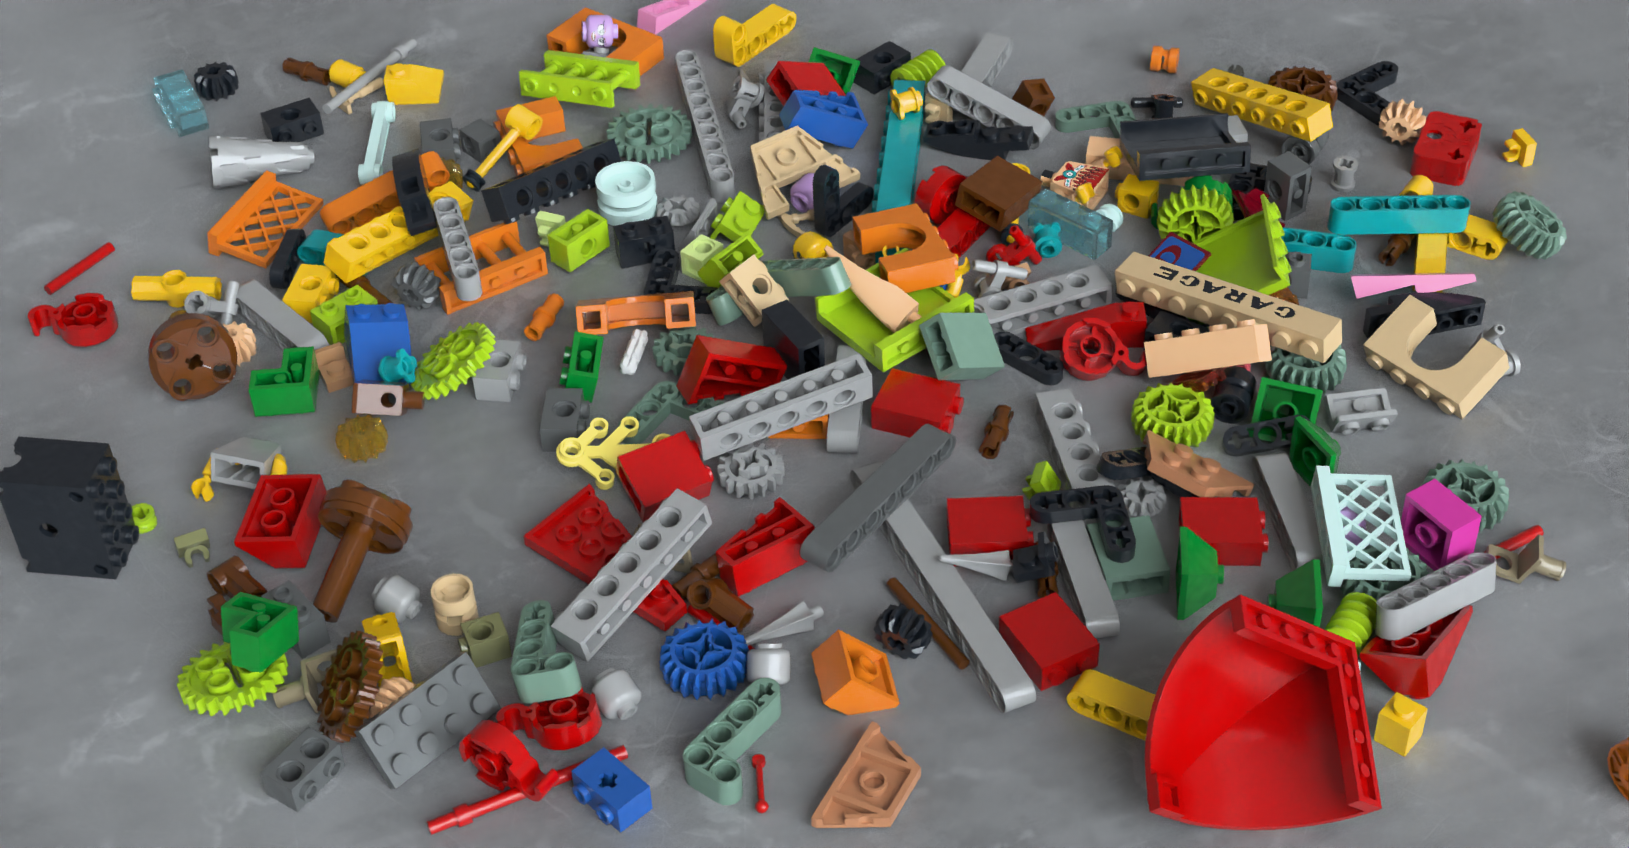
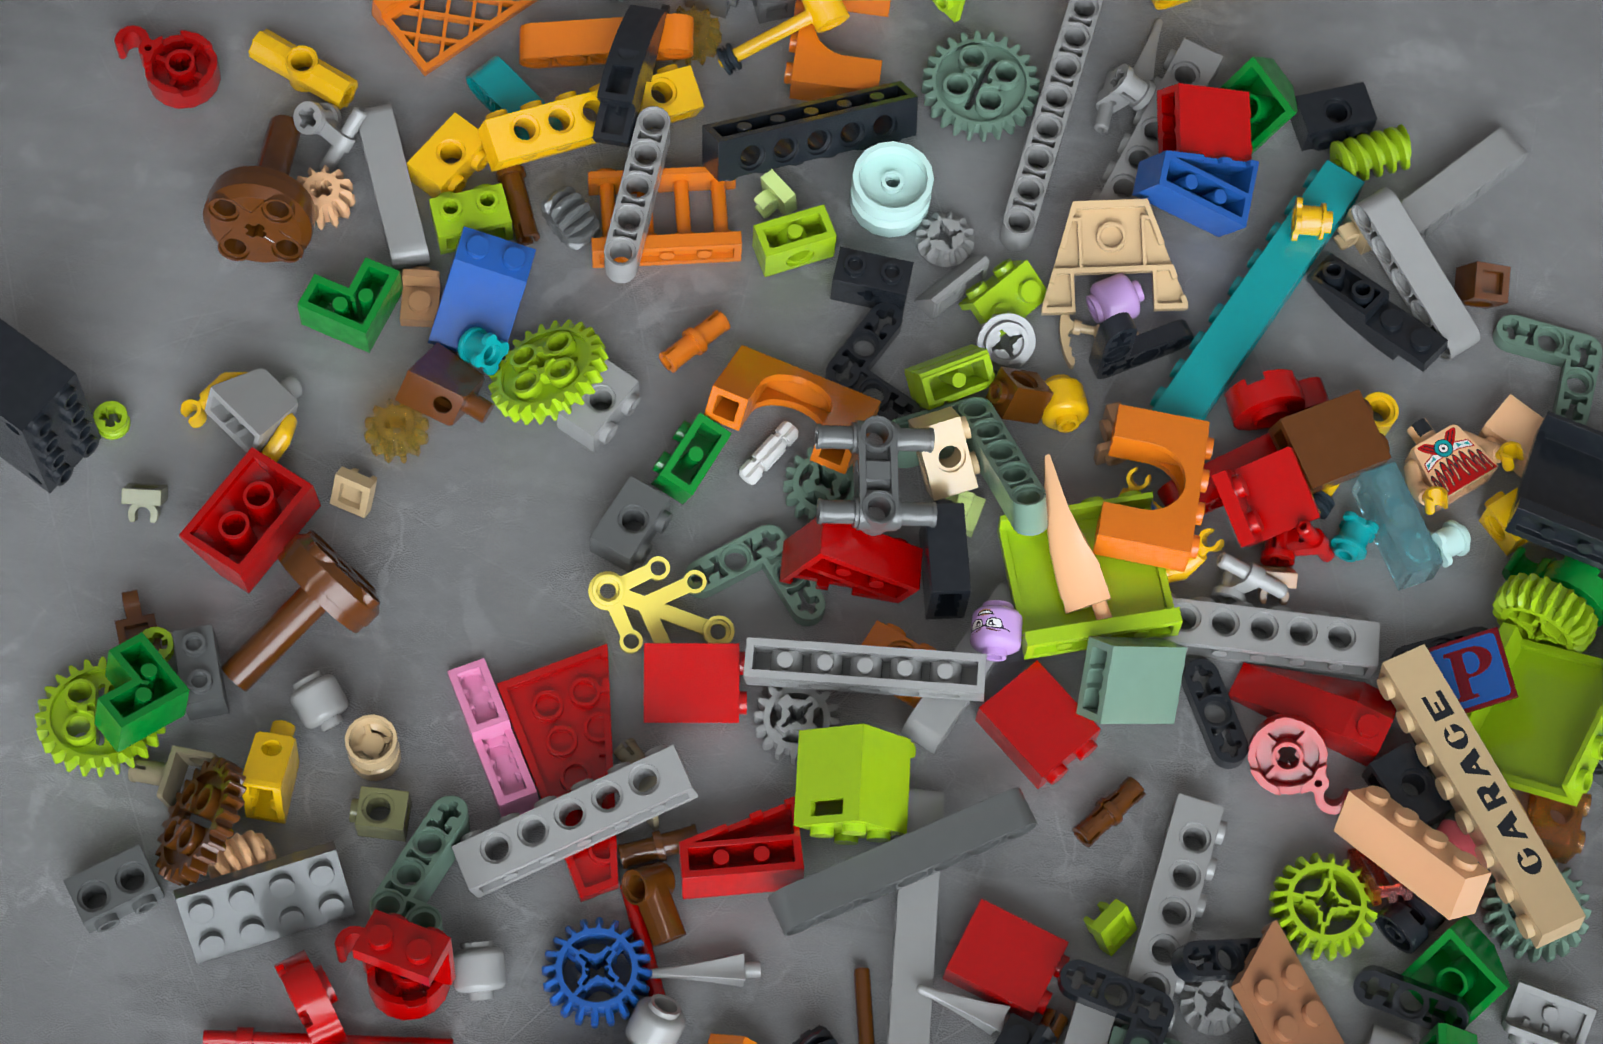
camera: 20 degrees right, 25 degrees up
(234, 577) = (164, 575): reddish brown piece -> none
(286, 259) = (450, 82): black beam -> none
(352, 472) = (353, 491): none -> tan tile
(536, 569) = (493, 738): none -> bright pink slope
(561, 675) = (406, 949): none -> red bracket
(697, 254) = (931, 328): yellowish green brick -> none
(720, 302) = (875, 475): none -> dark grey piece
(752, 223) = (1021, 345): none -> gear
(782, 248) = (1019, 395): none -> reddish brown brick
(797, 454) = (853, 783): none -> lime container
(854, 344) = (996, 630): none -> lavender head
(979, 228) = (1266, 497): none -> red bracket

